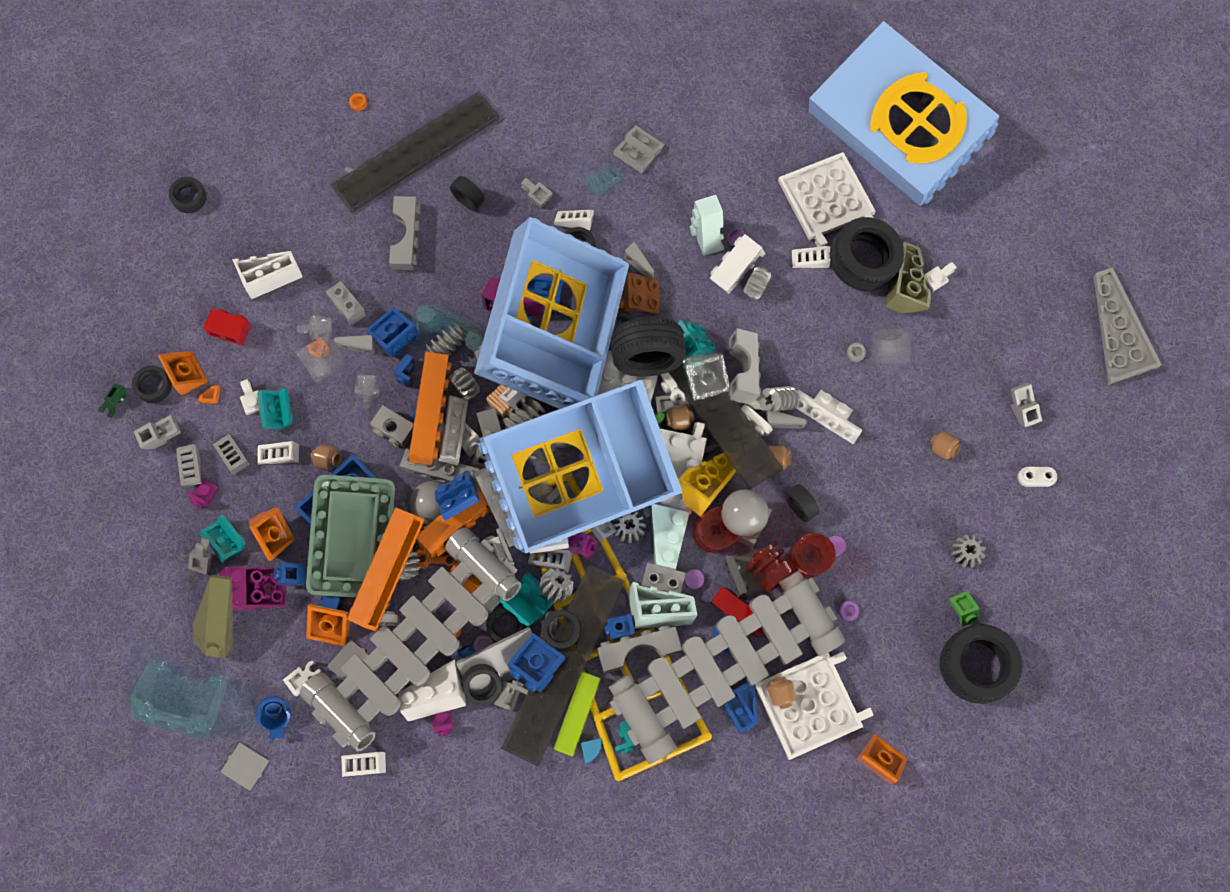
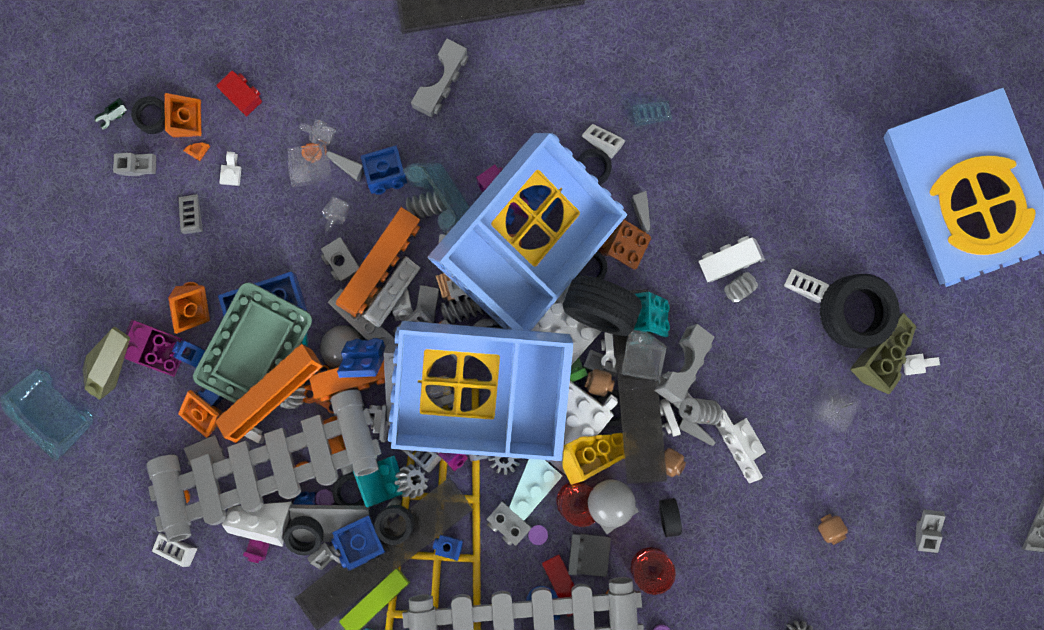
camera: 35 degrees right, 10 degrees up
(186, 454) = (157, 204): light grey slope -> none
(199, 559) = (119, 298): light grey plate -> none
(203, 494) = (149, 239): magenta bracket -> none
(224, 539) = (147, 290): teal bracket -> none
(245, 766) = (76, 500): light grey piece -> none
(266, 710) = (110, 471): blue hat -> none
(267, 273) = (297, 58): white wedge -> none
(275, 409) = (245, 192): teal bracket -> none
(291, 453) = (241, 240): white slope -> none
(299, 677) = (155, 448): white plate -> none
(326, 457) = (269, 260): medium nougat head -> none
(346, 303) = (354, 122): light grey brick -> none
(405, 367) = (378, 209): blue bracket -> none
(464, 384) = (421, 250): light grey gear -> none
(467, 193) = (515, 67): black tyre -> none
(538, 194) = (582, 97): light grey plate -> none
(642, 143) = (707, 95): light grey slope -> none
(660, 608) = (491, 548): light aqua wedge -> none
(664, 642) = (430, 569): light grey arch -> none
(706, 224) = (722, 208): light aqua wedge -> none
(734, 235) = (745, 229): medium lavender tile -> none
(771, 566) = (609, 562): clear red wheel -> none
(826, 196) = (853, 233): white plate -> none
(839, 544) = (682, 569): medium lavender tile -> none
(856, 352) = (799, 398): light grey tile -> none
(1038, 477) = (904, 601): white plate -> none

